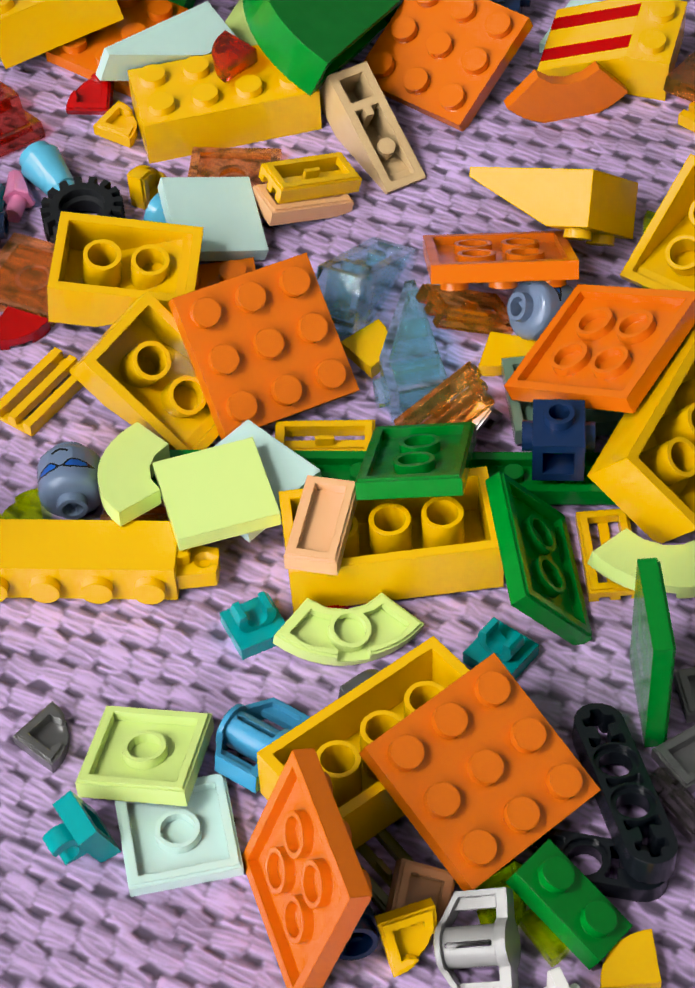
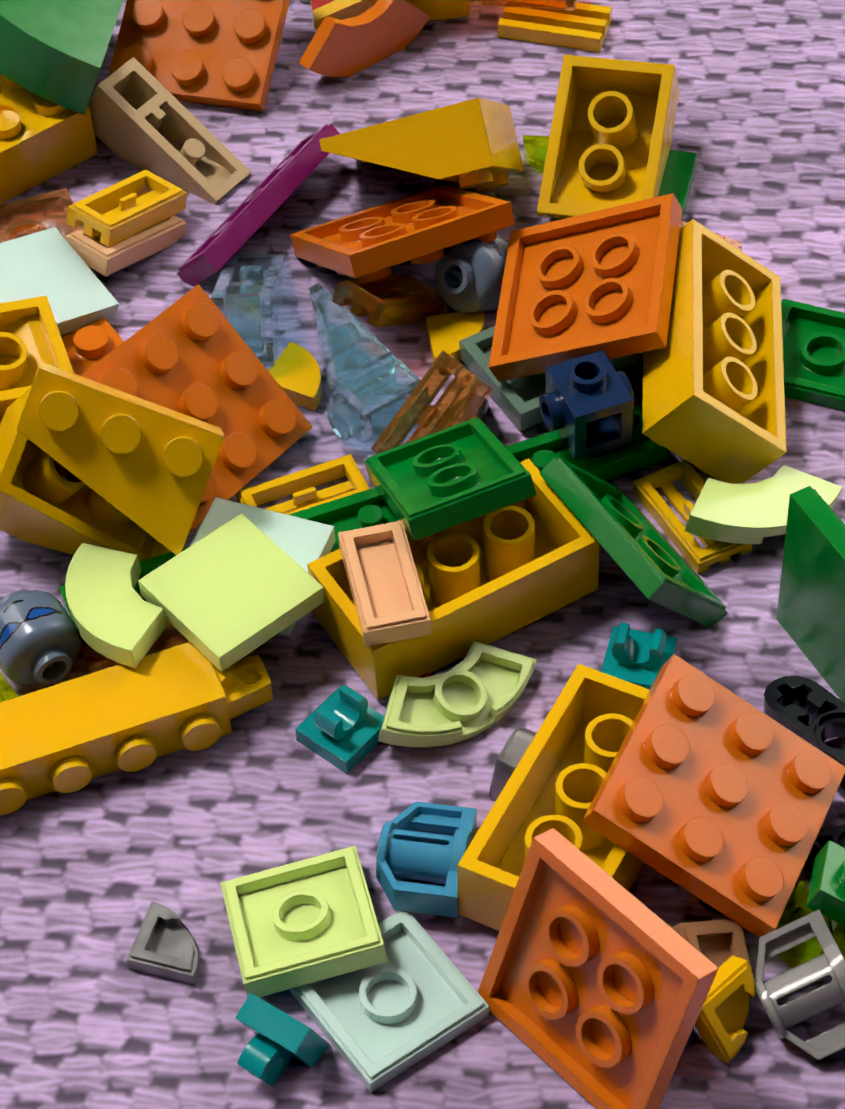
camera: 25 degrees left, 0 degrees up
(183, 360) = (124, 449): none -> yellow wedge
(406, 208) = (256, 208): none -> magenta tile

